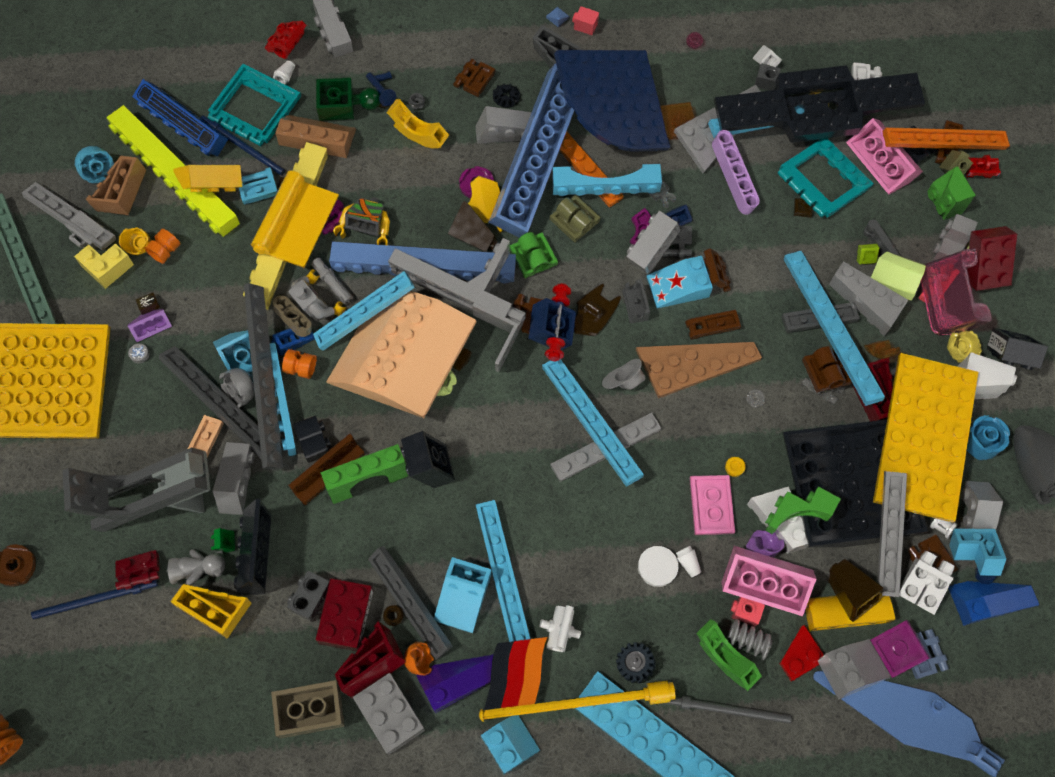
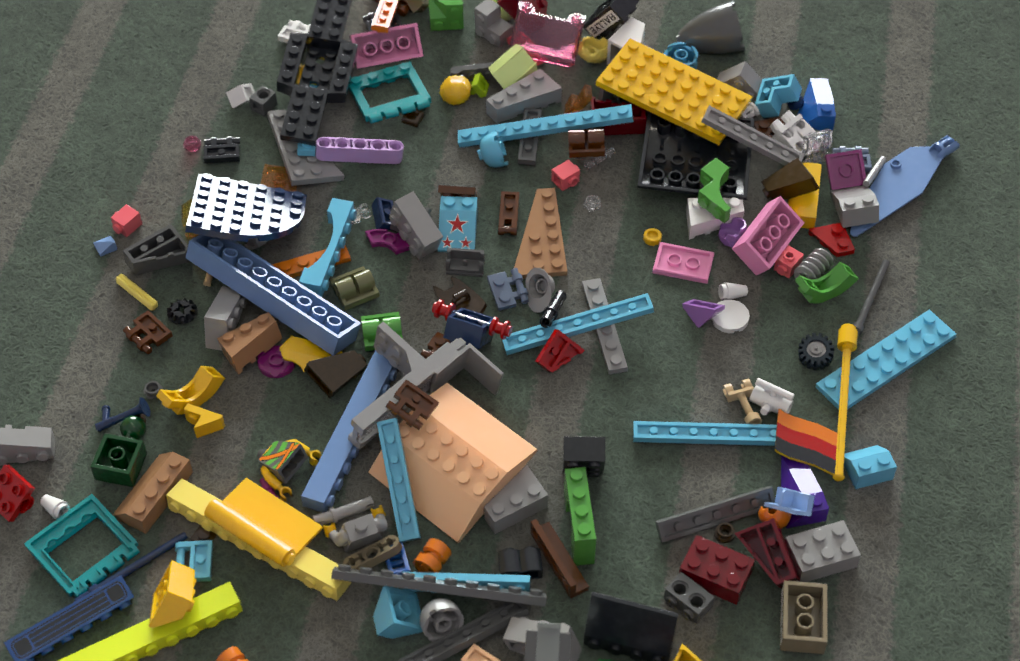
camera: 70 degrees left, 15 degrees down
(376, 417) = (516, 501): none -> light grey wedge
(393, 148) = (204, 420): none -> yellow slope
(429, 670) = (792, 502): none -> light blue panel
(431, 294) = (416, 400): none -> reddish brown plate
(462, 595) = (720, 466): medium azure slope -> none
(482, 151) = (249, 340): none -> medium nougat wedge
(515, 55) = (136, 292): none -> light yellow axle
(534, 613) = (741, 395): none -> tan bar
(554, 410) = (557, 351): none -> red wing
(595, 391) = (551, 312): none -> black pin
(614, 343) = (502, 291): none -> sand blue plate
(653, 535) = (702, 311): none -> medium lavender slope
(693, 68) = (221, 150): none -> black plate
(781, 364) = (566, 175): none -> coral brick
(786, 286) = (492, 150): none -> medium azure cylinder
(851, 233) = (455, 90): none -> yellow hair
(913, 682) = (868, 180): none -> light grey bar
(923, 608) = (819, 143): none -> clear plate

